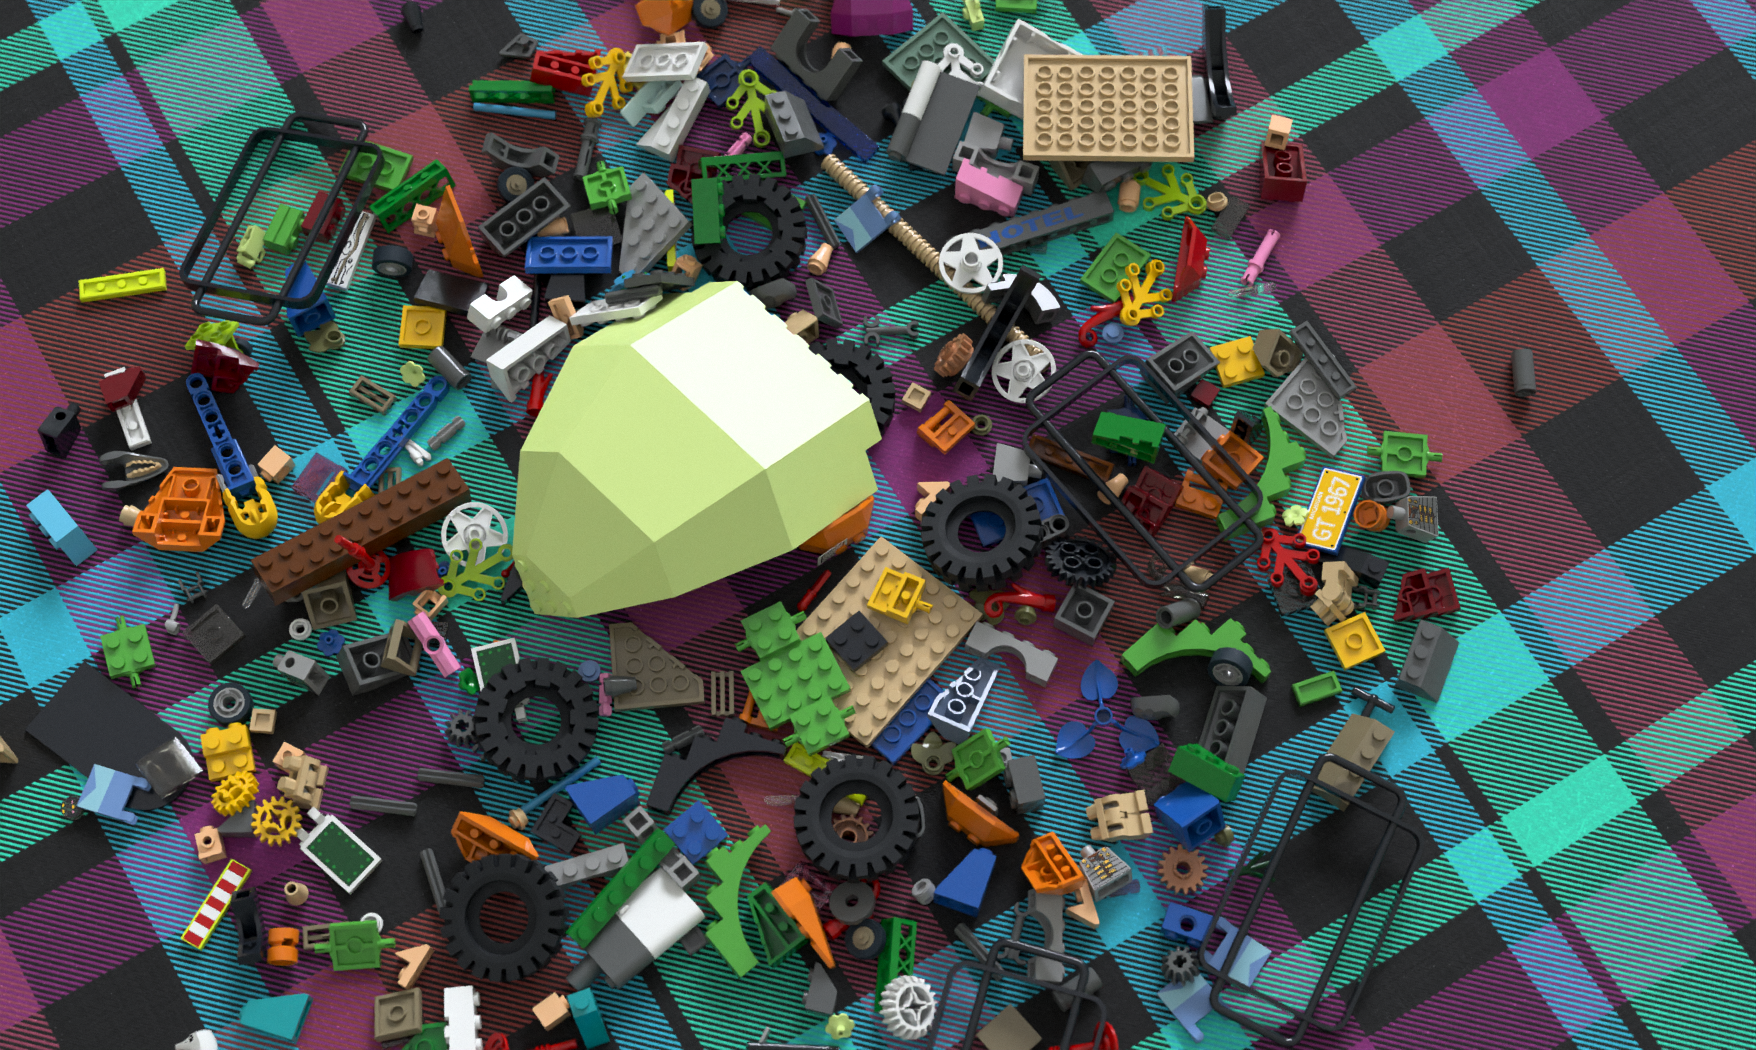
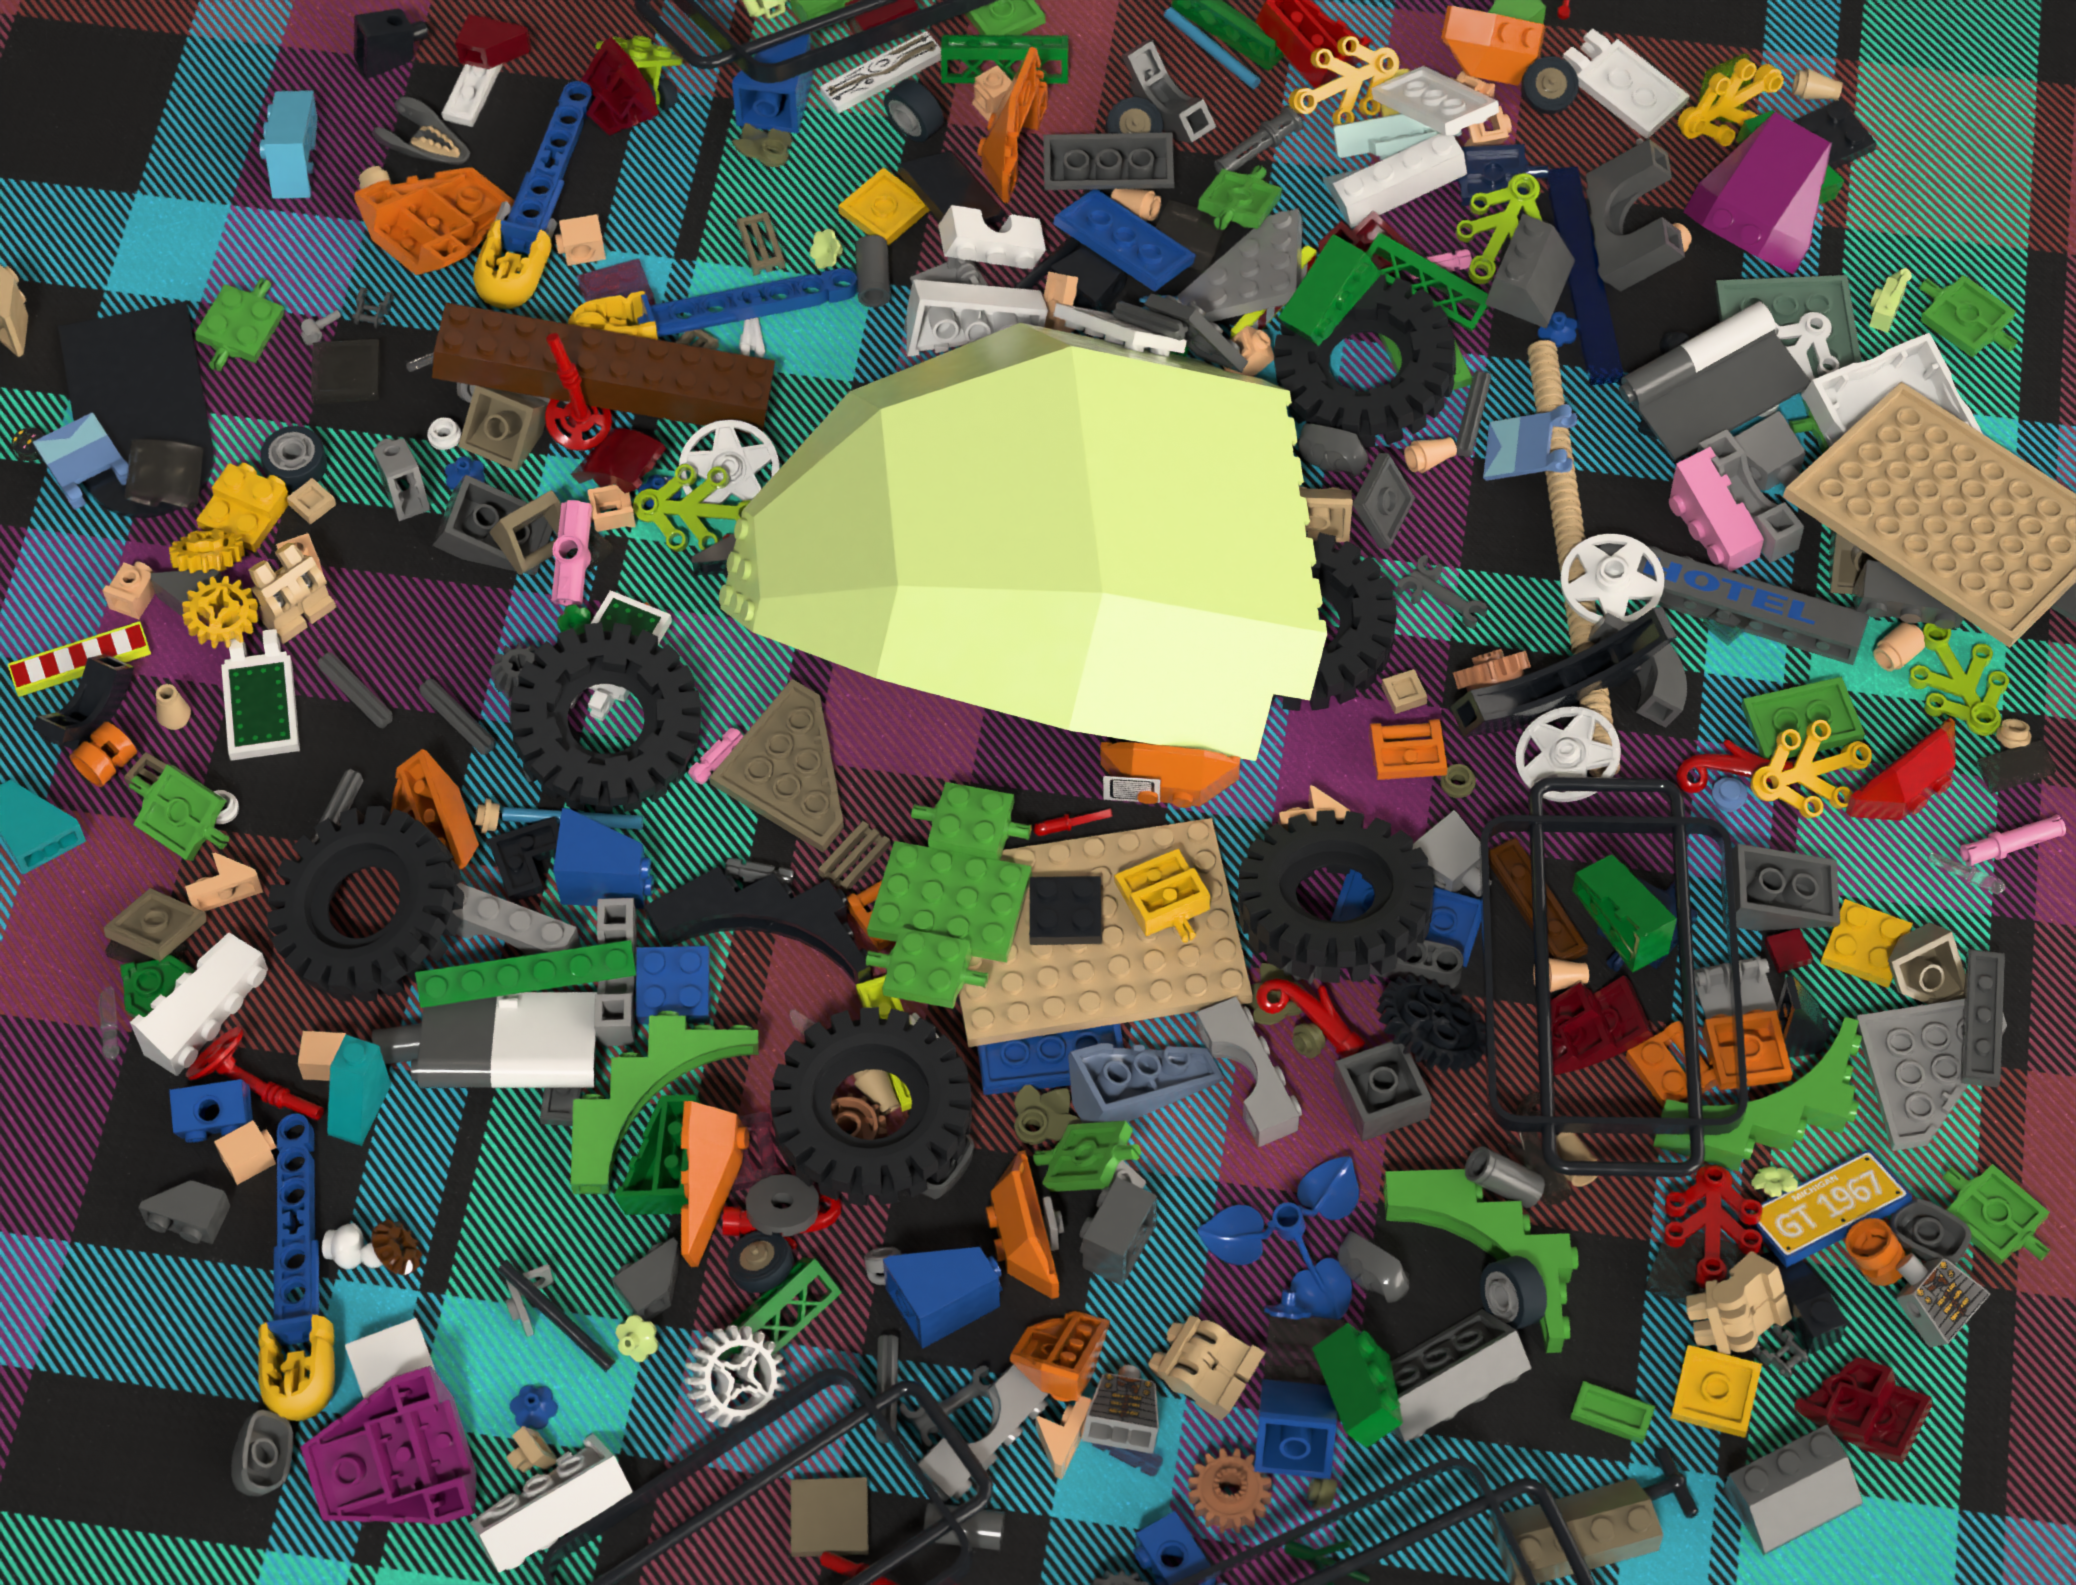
camera: 40 degrees right, 10 degrees down
(446, 433) = (804, 340): light grey axle -> none
(589, 671) = (722, 716): medium blue plate -> none
(618, 685) = (736, 750): dark grey cone -> none

